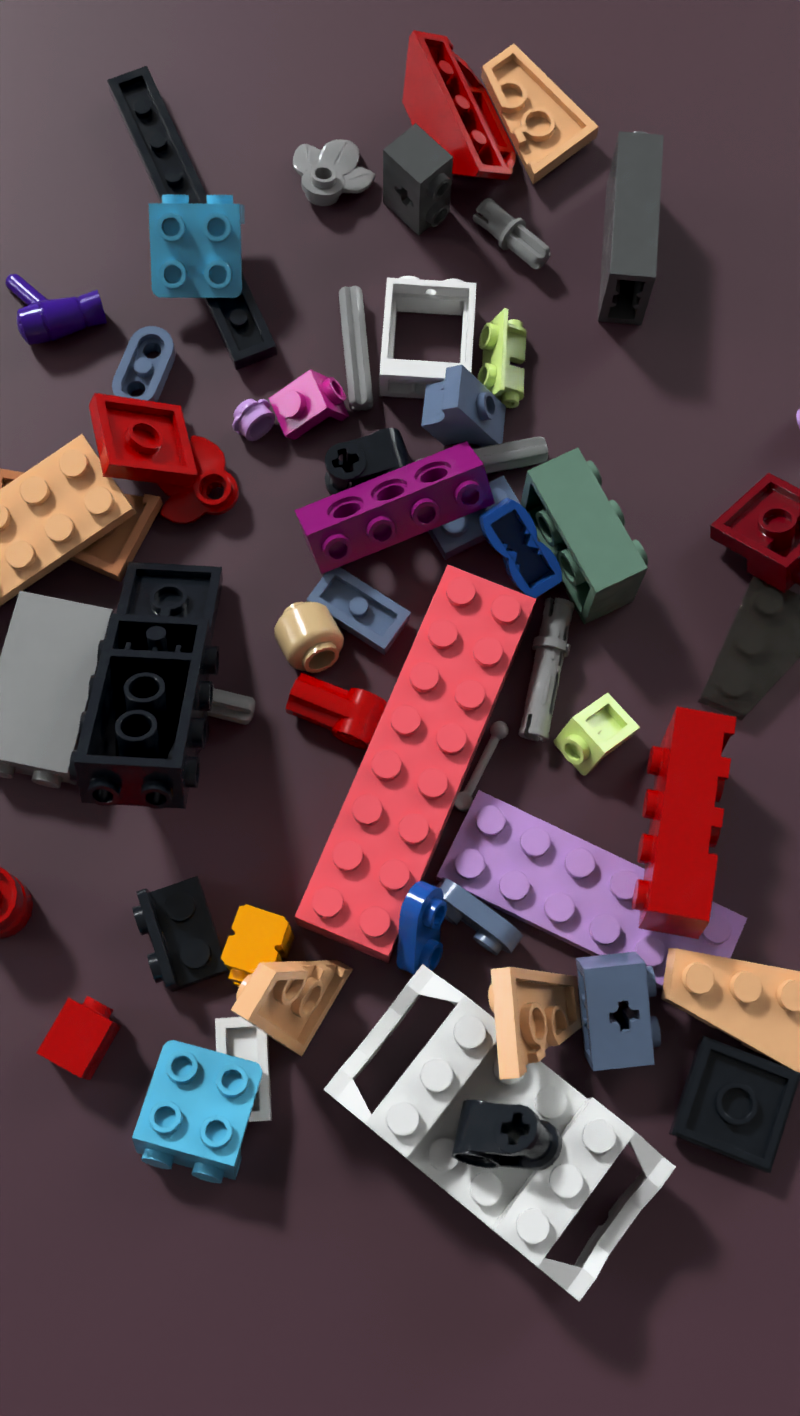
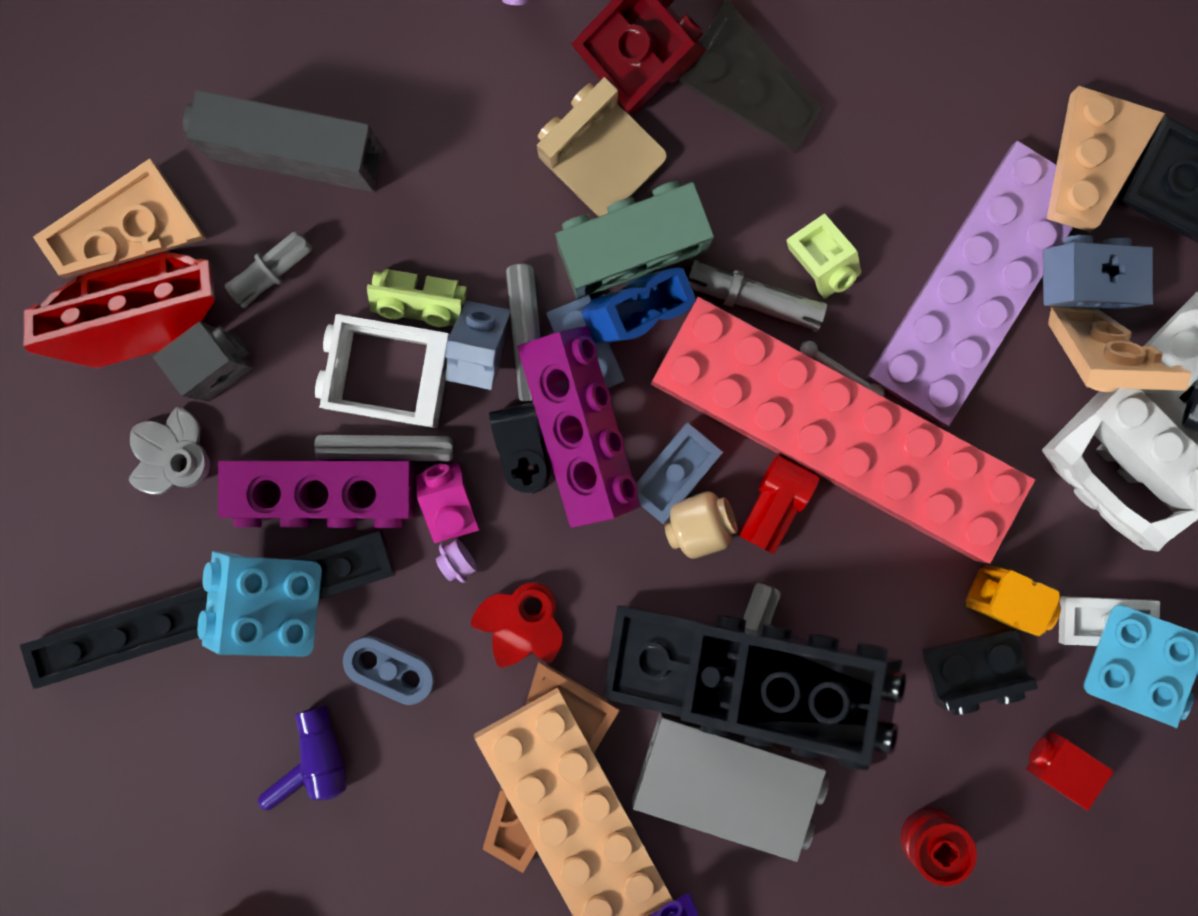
camera: 85 degrees left, 15 degrees up
(142, 440) = (479, 677): red plate -> none
(290, 998) = (1070, 573): light nougat wing -> none
(307, 229) = (242, 485): none -> magenta brick
(421, 928) = (1008, 447): blue plate -> none
(492, 930) = (1005, 381): sand blue plate -> none
(674, 503) = (599, 149): none -> tan bracket
(683, 823) = (938, 187): red wedge -> none

